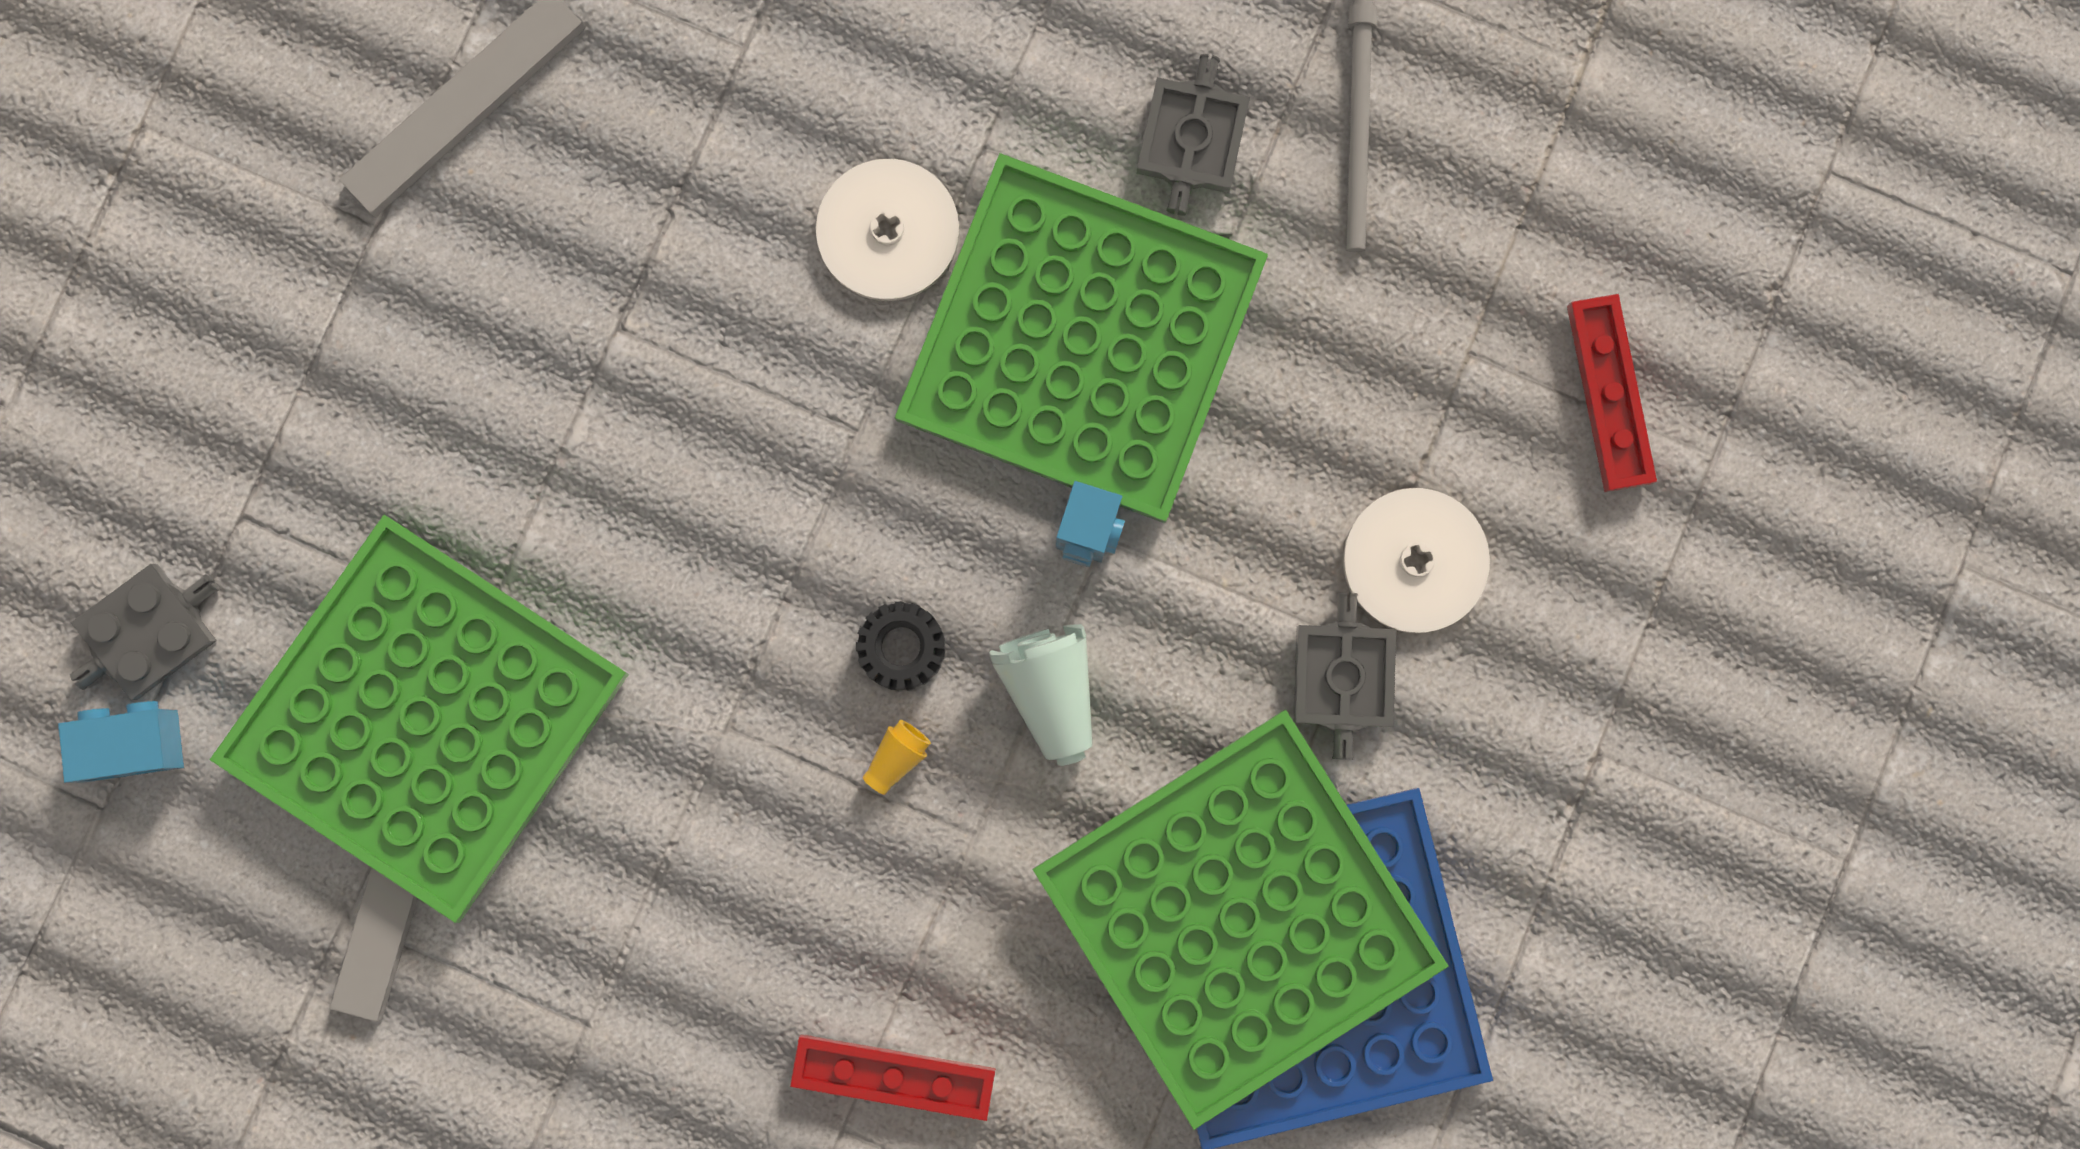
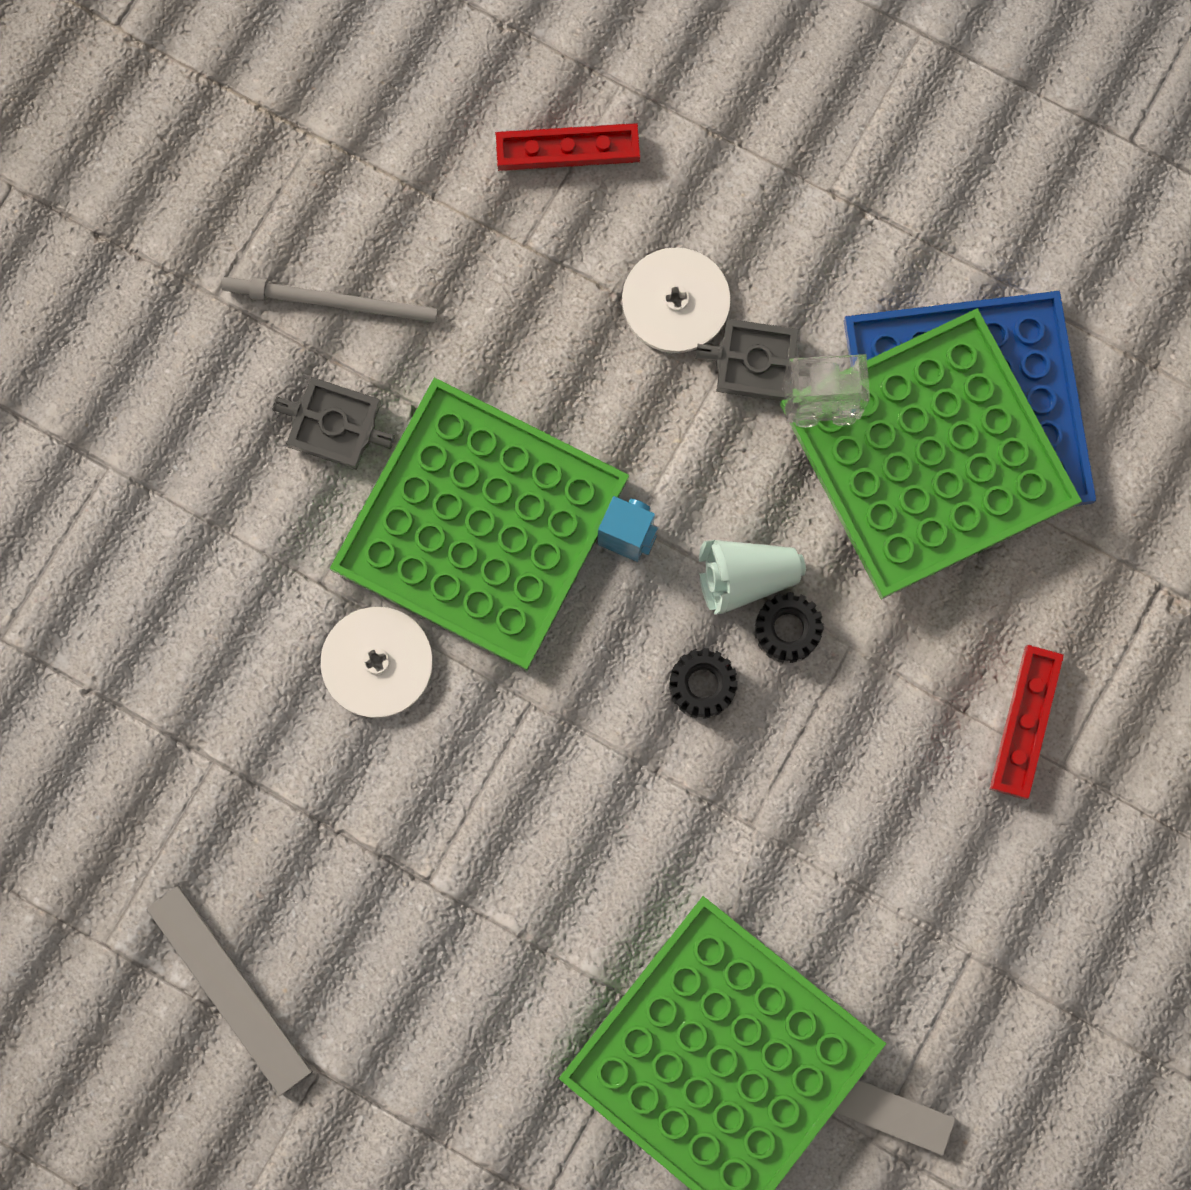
camera: 85 degrees left, 5 degrees down
(897, 755) = (784, 693): yellow cone -> none
(957, 740) = (801, 609): none -> black tyre
(1298, 764) = (826, 389): none -> clear brick

